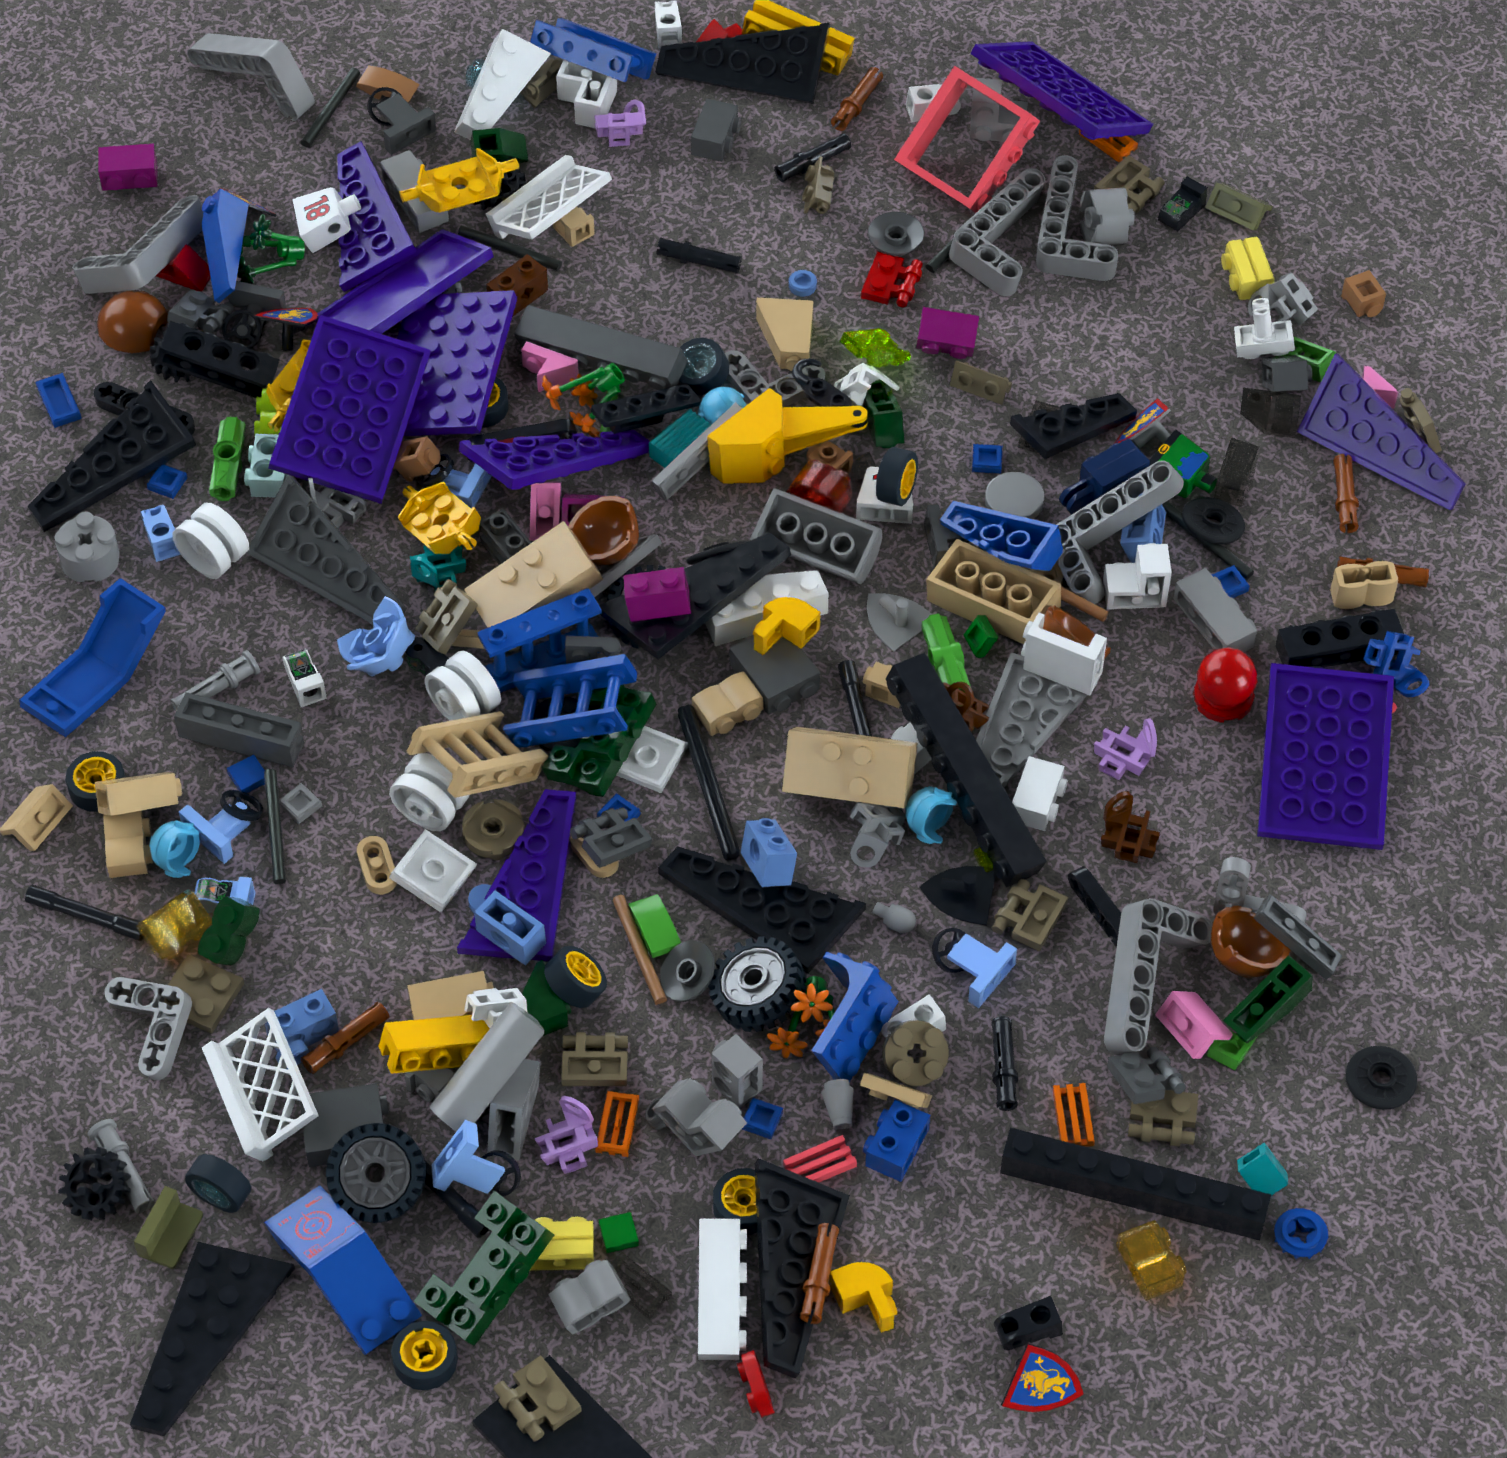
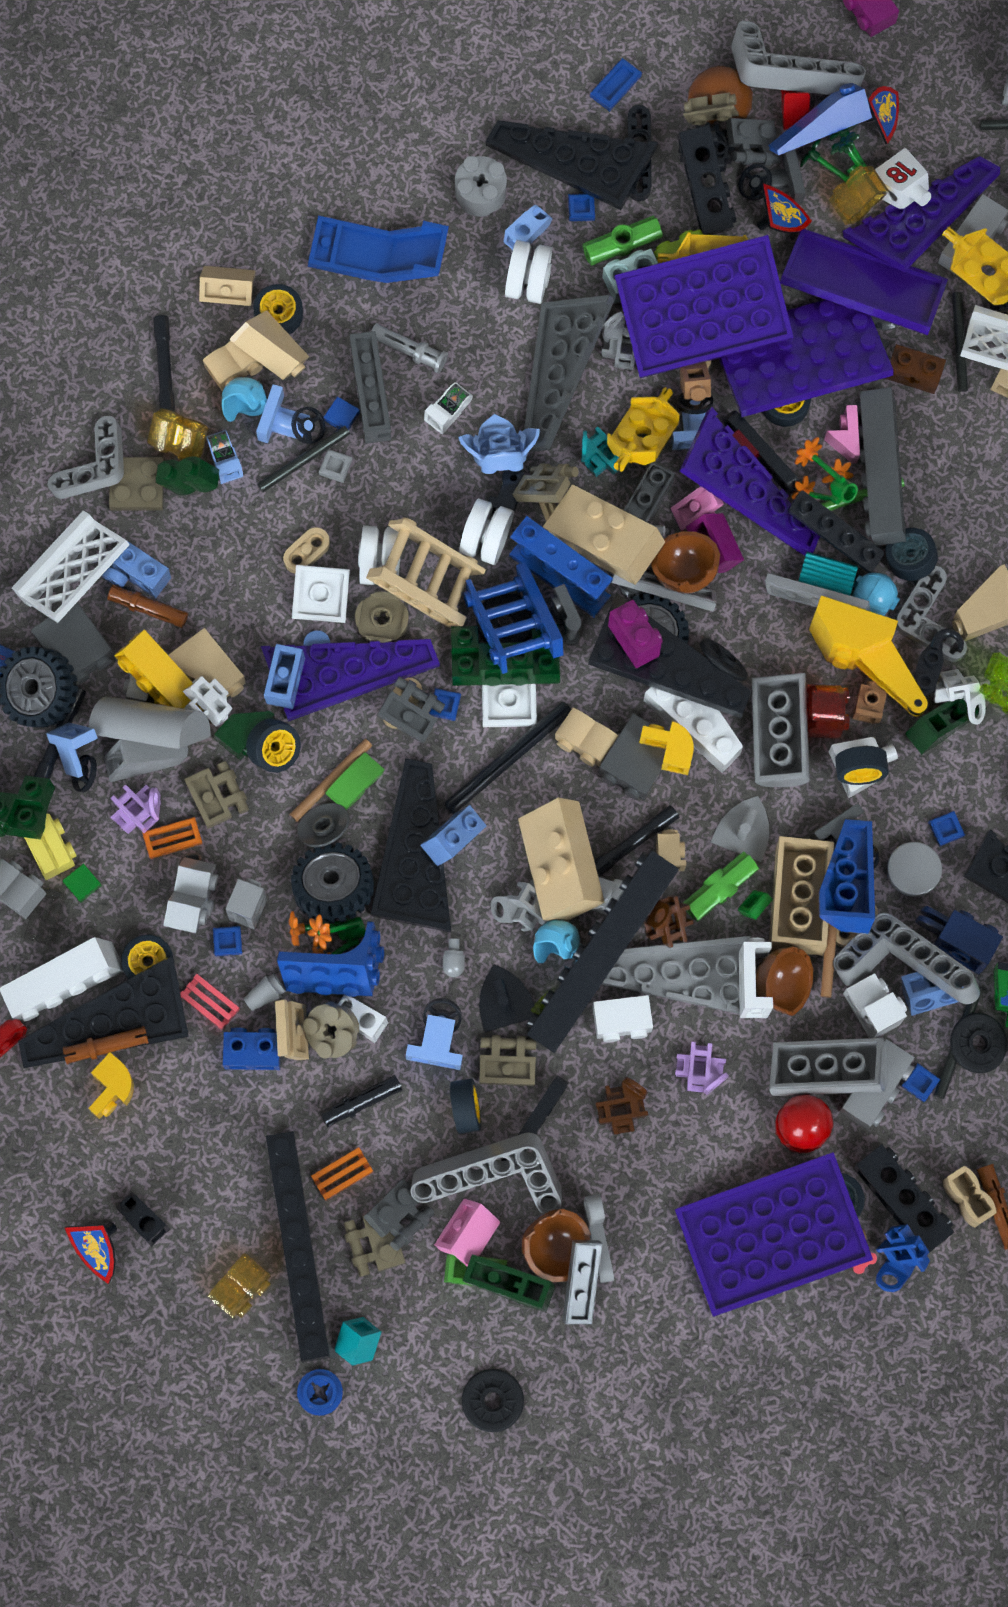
camera: 60 degrees right, 20 degrees up
(144, 335) = (700, 112): none -> dark tan hinge
(315, 252) = (858, 194): none -> clear yellow brick
(1061, 962) = (465, 1106): none -> black wheel
(1181, 635) = (828, 1067): none -> light grey brick

